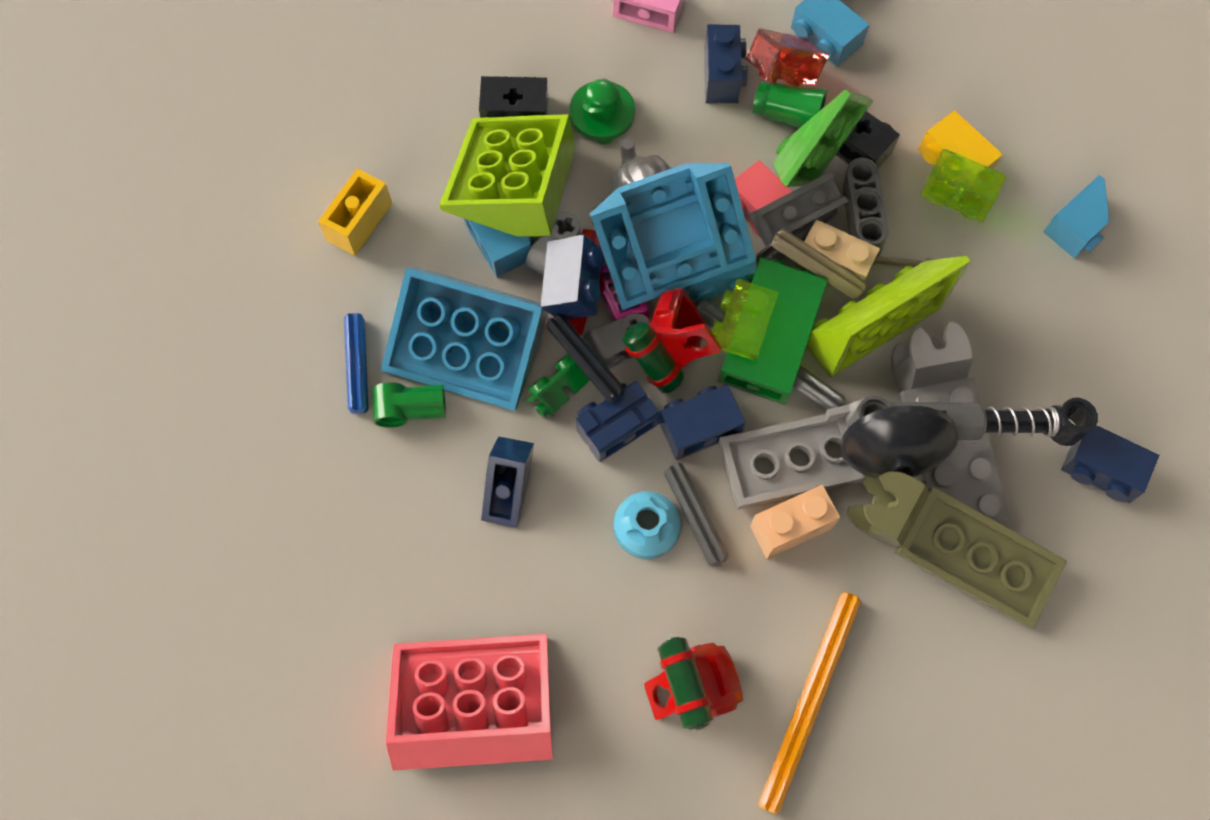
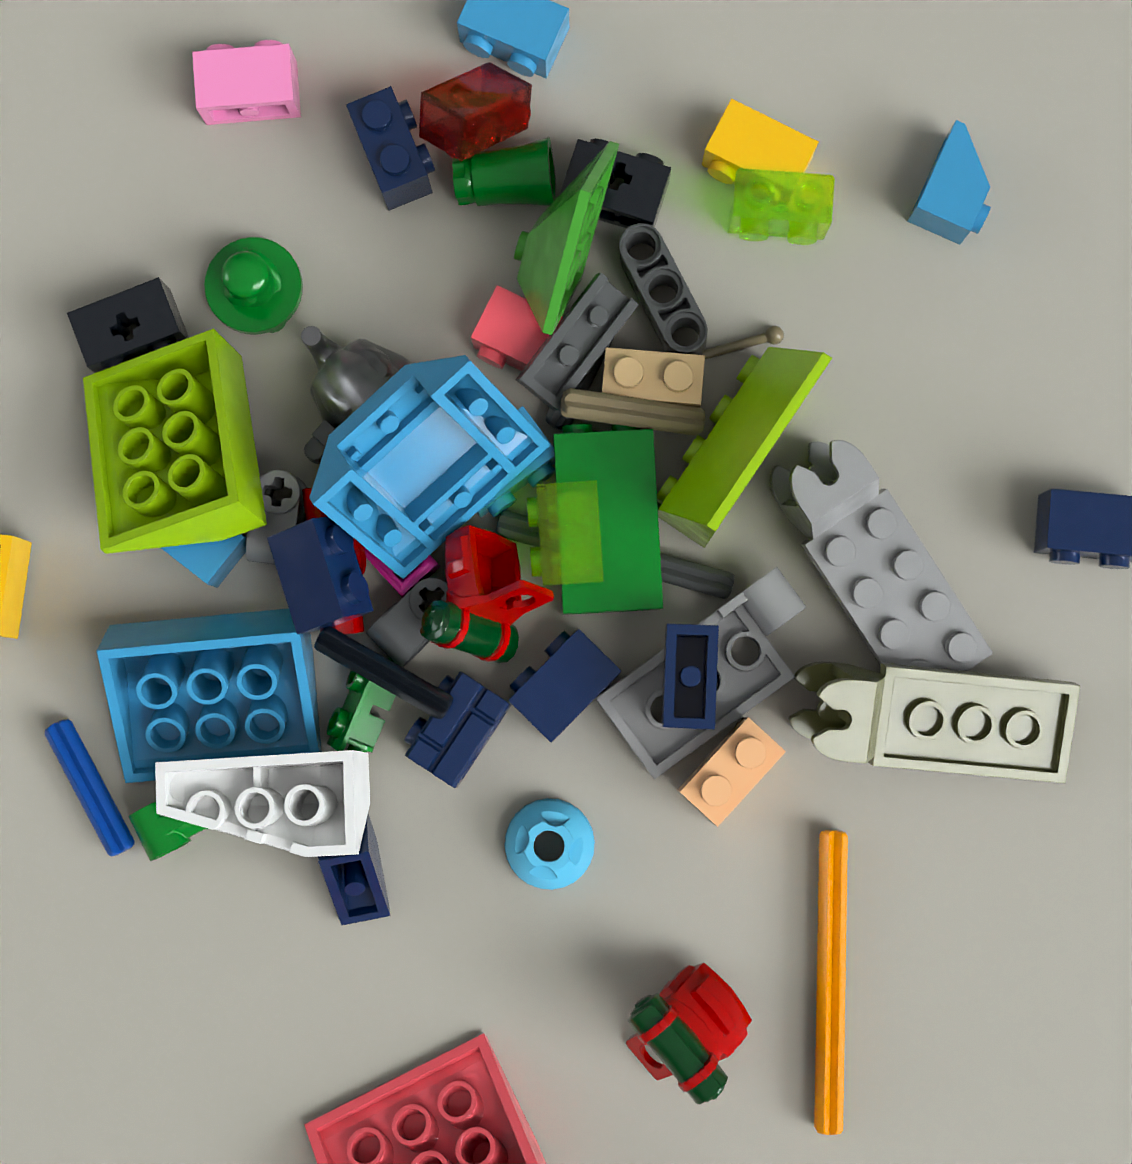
camera: 15 degrees left, 15 degrees up
(482, 408) = (287, 801): none -> white wedge
(696, 515) = (605, 807): dark grey axle -> none
(792, 438) = (690, 676): none -> dark blue brick
(899, 440) = (827, 639): black dish -> none
(974, 421) = (902, 561): piece -> none

